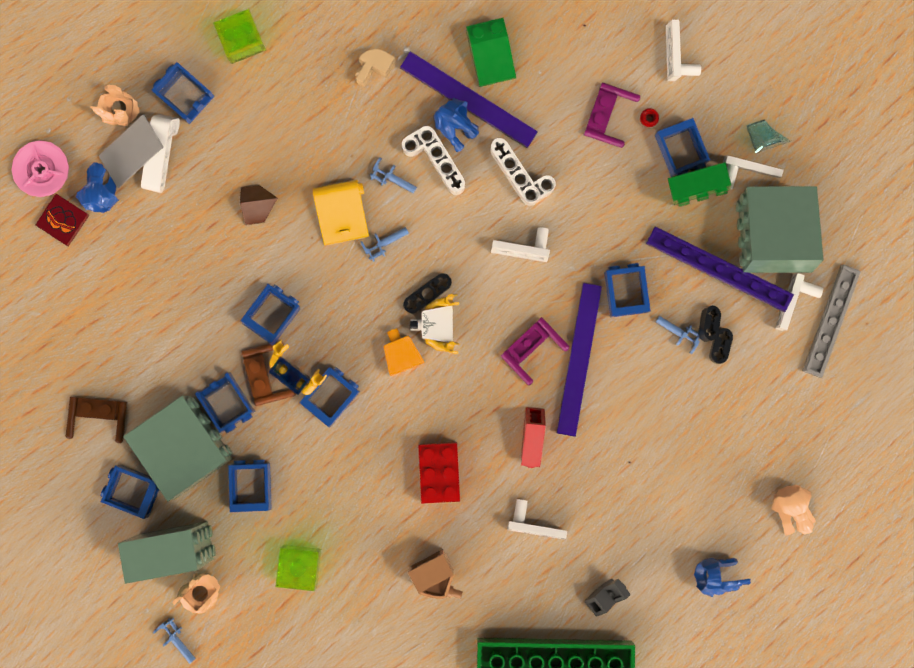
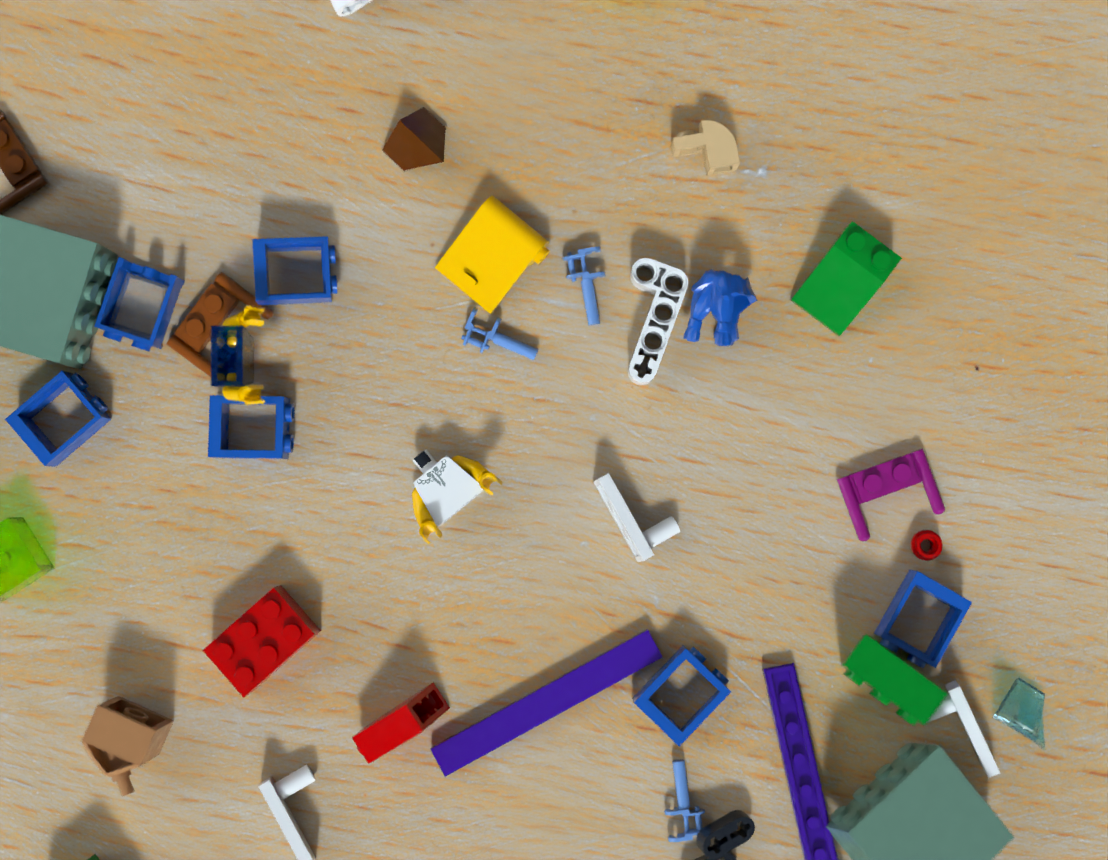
camera: 60 degrees right, 0 degrees up
(401, 353) = (374, 472): light orange torso -> none
(442, 289) = (457, 431): black beam -> none
(476, 104) = (765, 313): dark purple tile -> none
(518, 170) = (724, 433): white beam -> none
(527, 344) = (514, 622): magenta plate -> none
(674, 66) = (1017, 526): white piece -> none

